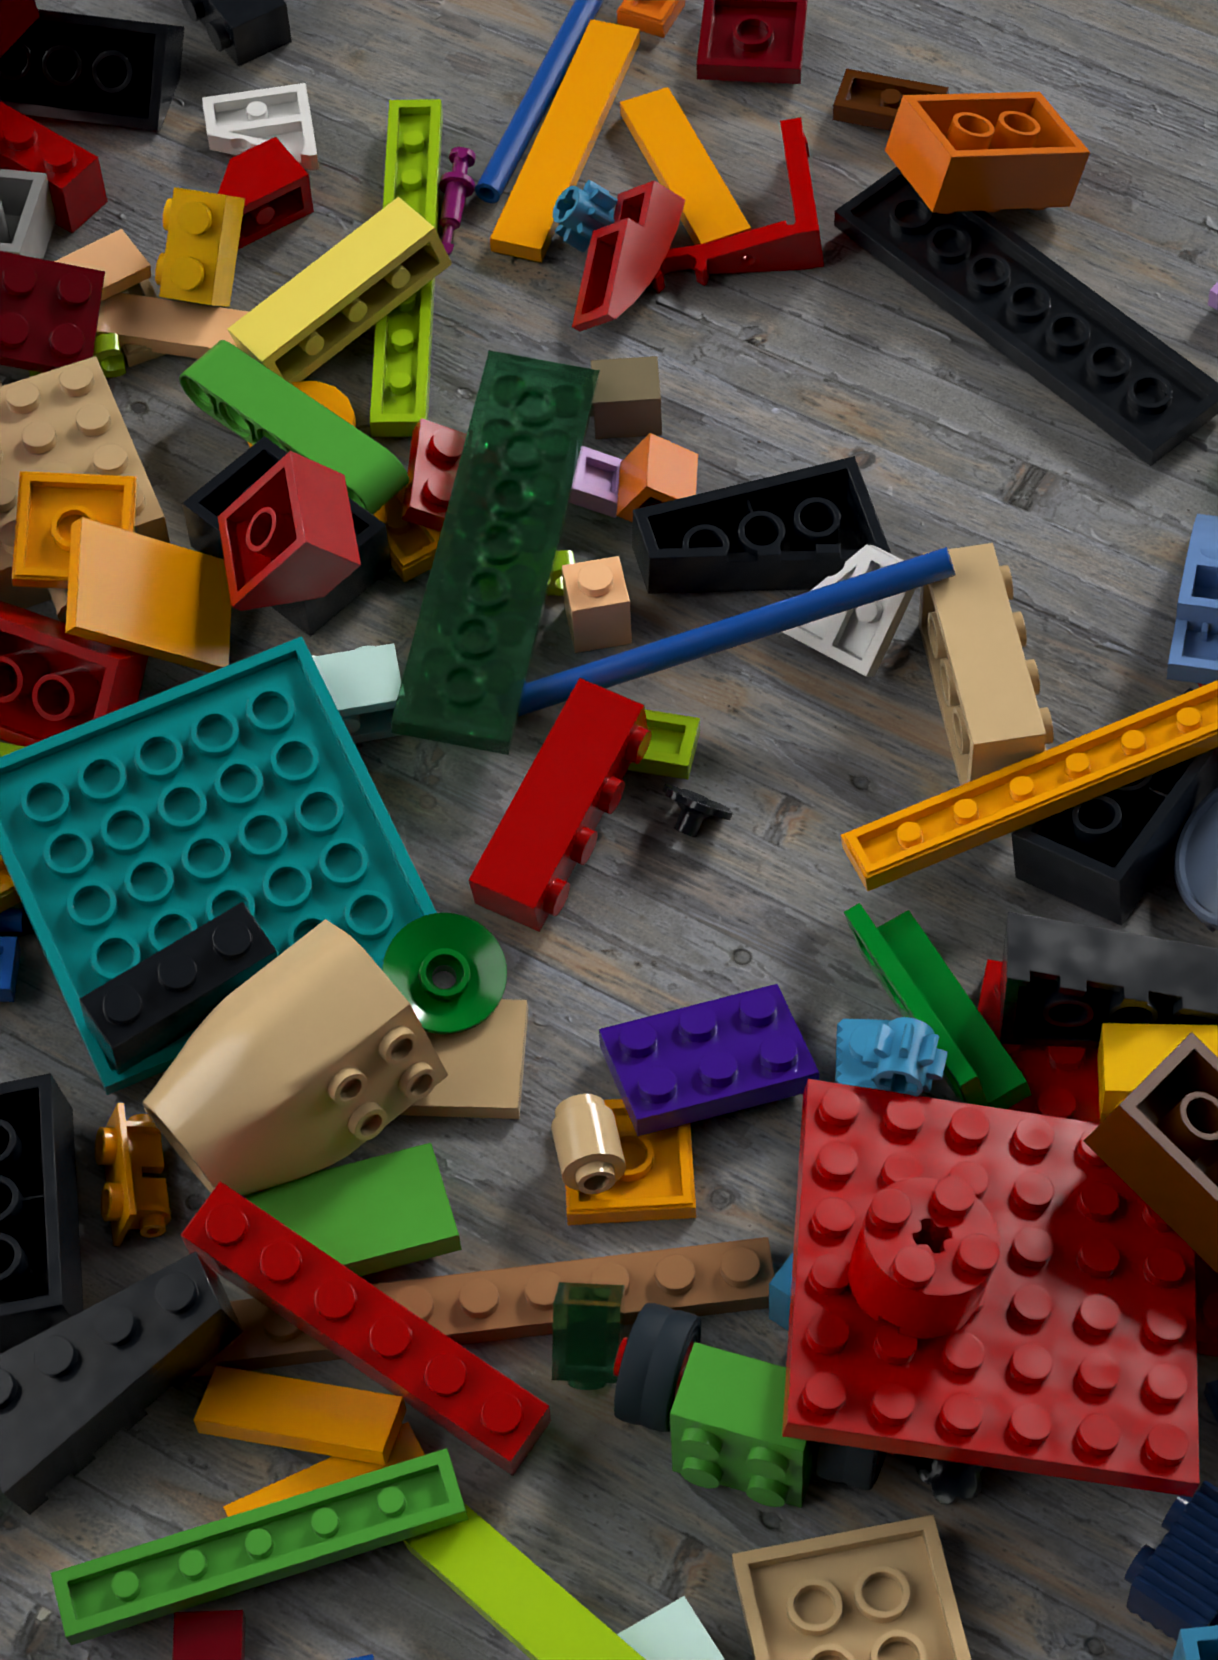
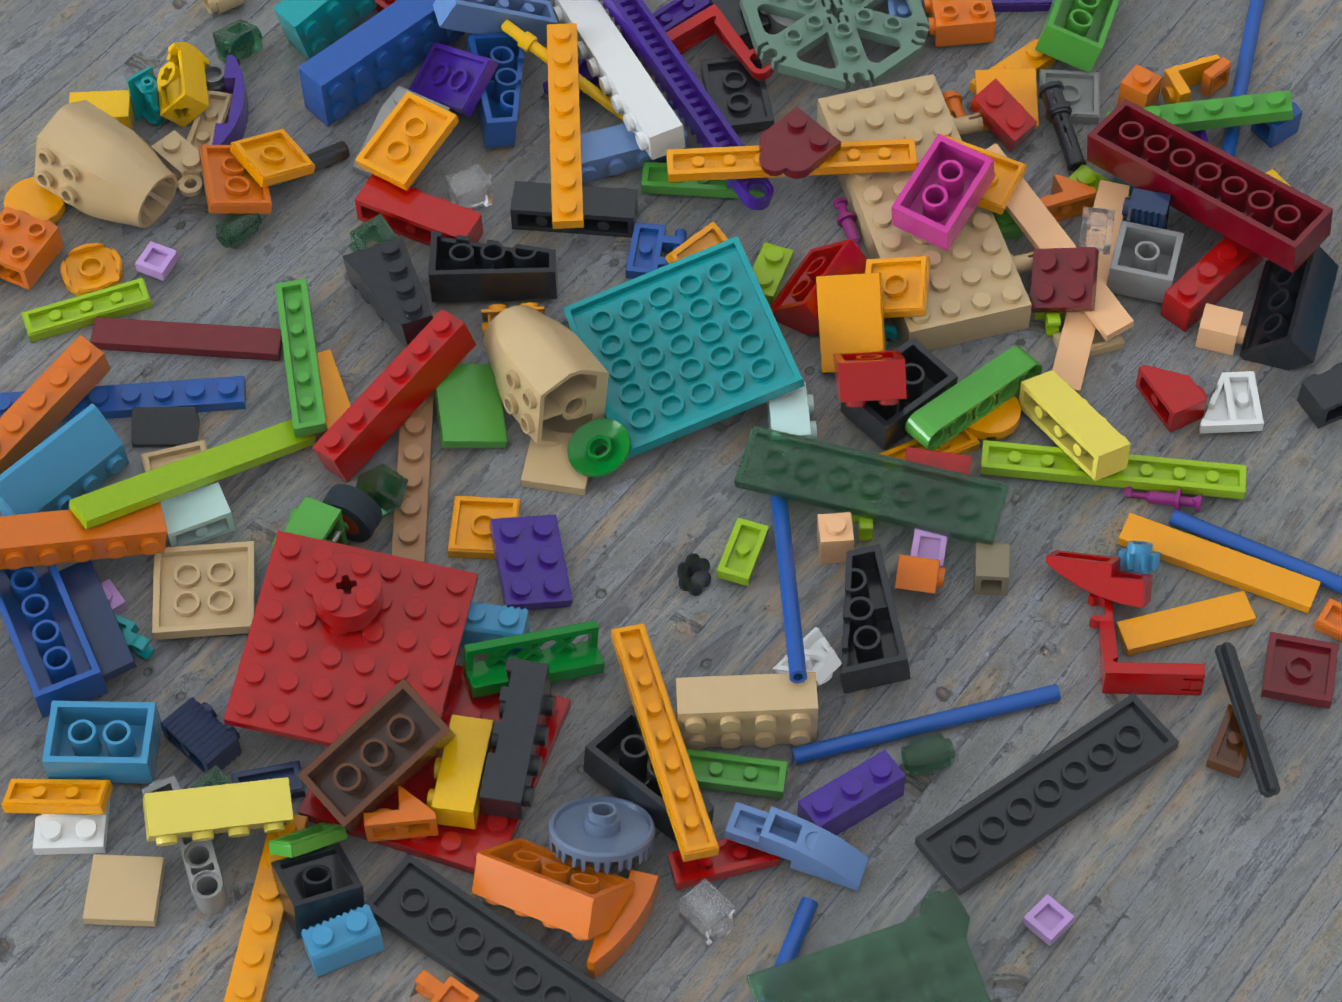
camera: 95 degrees right, 0 degrees up
(120, 140) = (1220, 329): none -> light nougat brick
(175, 987) = (598, 327): black brick -> none
(199, 247) = (1114, 357): yellow brick -> none
(300, 1415) = (372, 364): light orange tile -> none
(560, 805) = (694, 504): red brick -> none
(587, 1144) = (482, 498): tan brick -> none
(864, 74) = (1247, 720): none -> black axle
(905, 1056) = (483, 619): dark azure gear -> none
(916, 442) = (925, 724): none -> blue piece
(986, 151) = (1162, 770): orange brick -> none
(995, 452) = (927, 754): none -> clear green brick
(1081, 681) = (739, 773): none -> bright green plate
(1101, 538) = (854, 794): none -> dark purple brick

